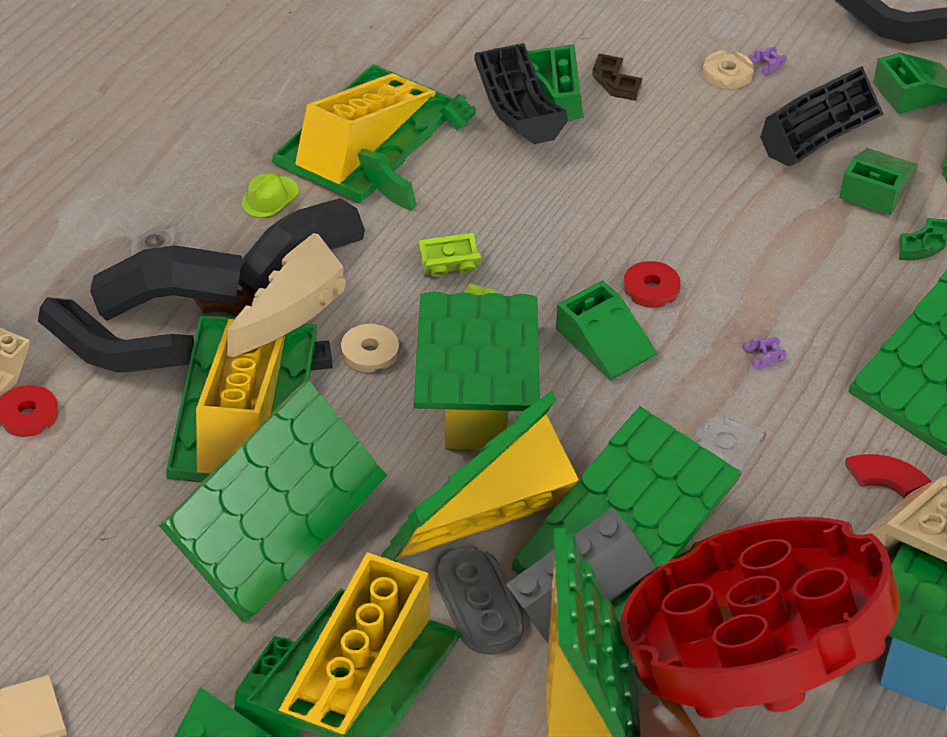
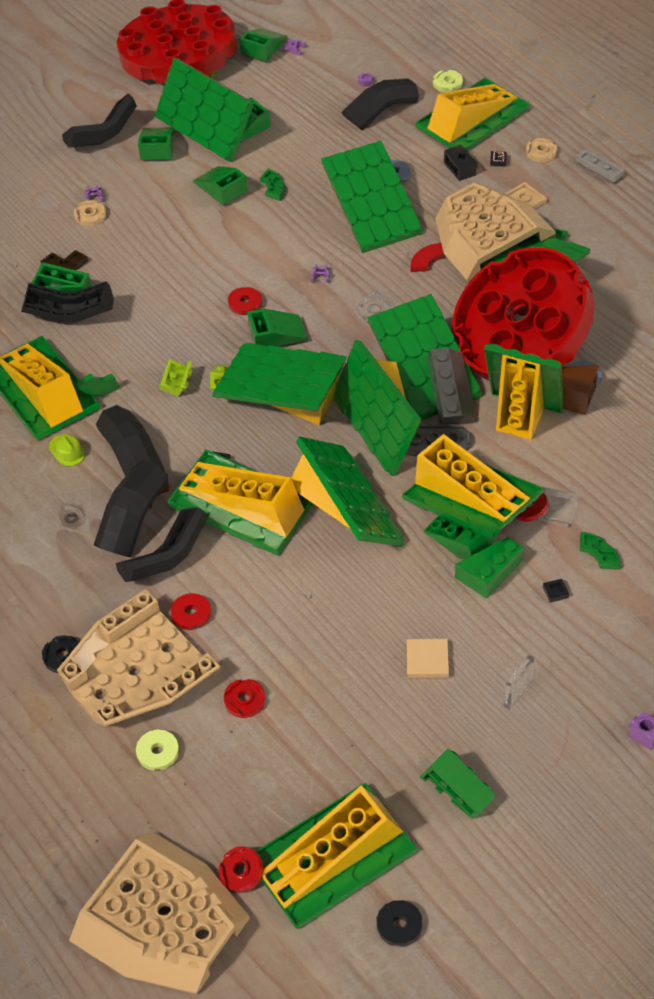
camera: 65 degrees left, 5 degrees up
(296, 294) = (183, 450): tan wedge -> none
(370, 335) = (227, 427): tan tile -> none
(458, 111) = (53, 337): green tile -> none
(820, 117) = (163, 185): black piece -> none

